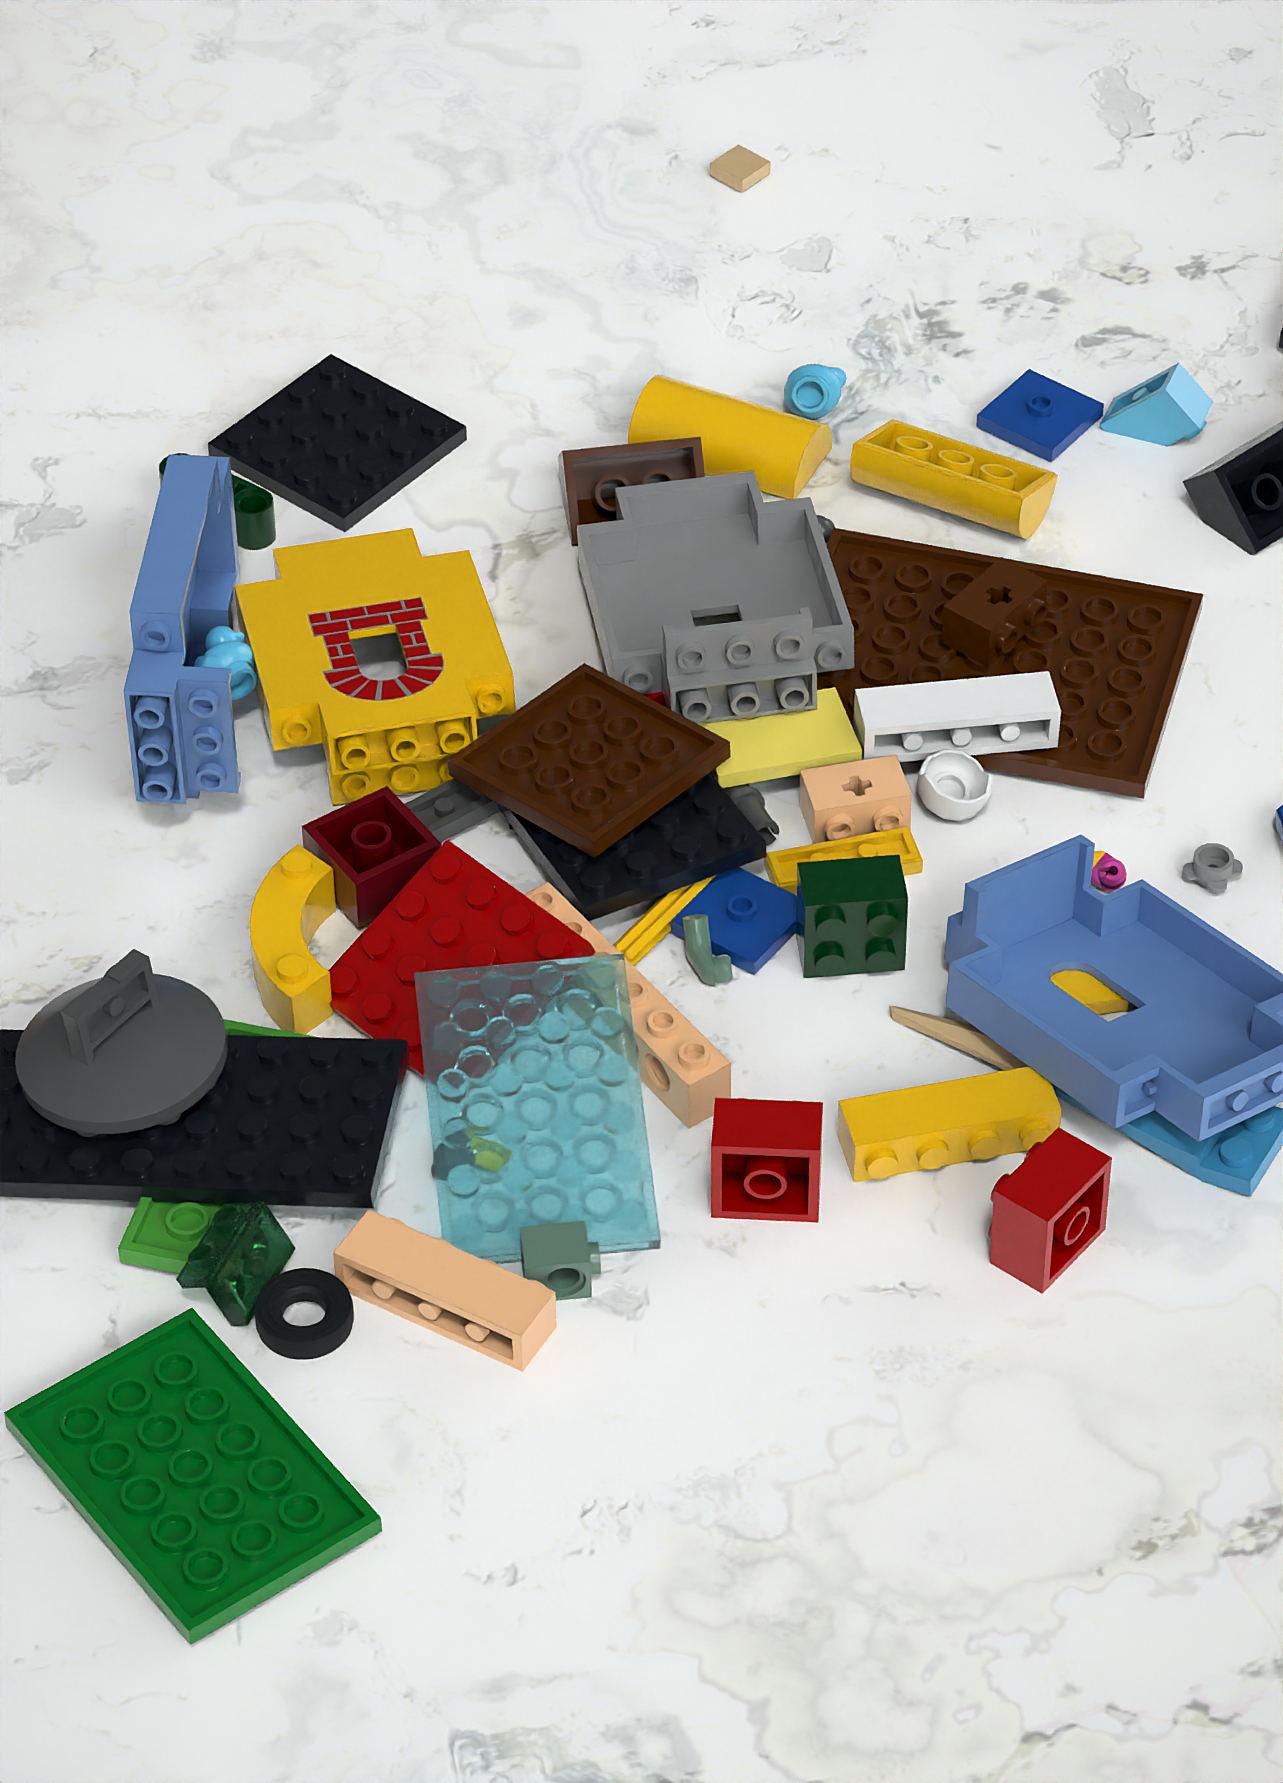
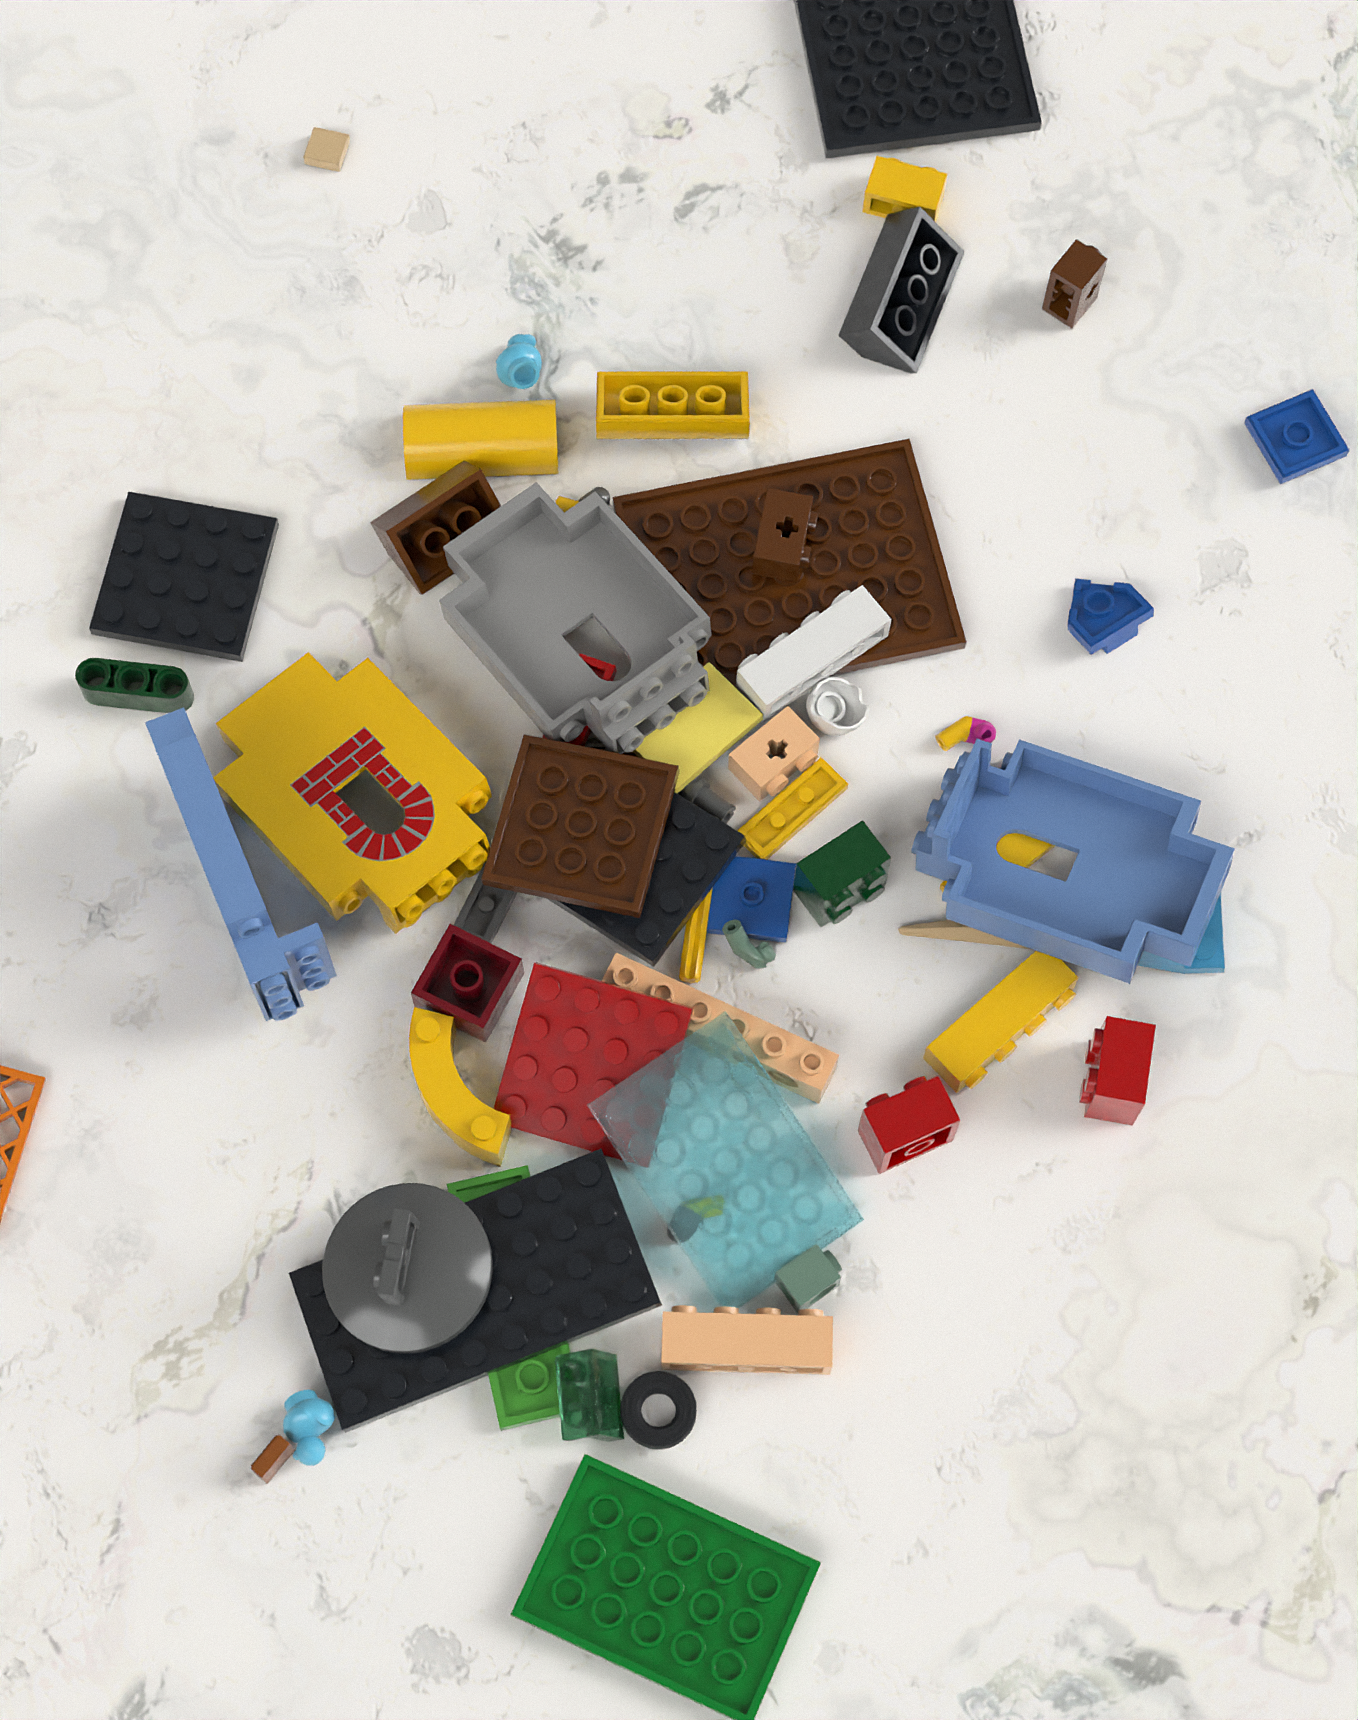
camera: 30 degrees left, 25 degrees up
(229, 651) = (262, 859): medium azure animal -> none
(1040, 415) = (692, 307): blue plate -> none
(1160, 409) = (778, 267): medium azure slope -> none
(1213, 867) = (1051, 682): light grey plate -> none

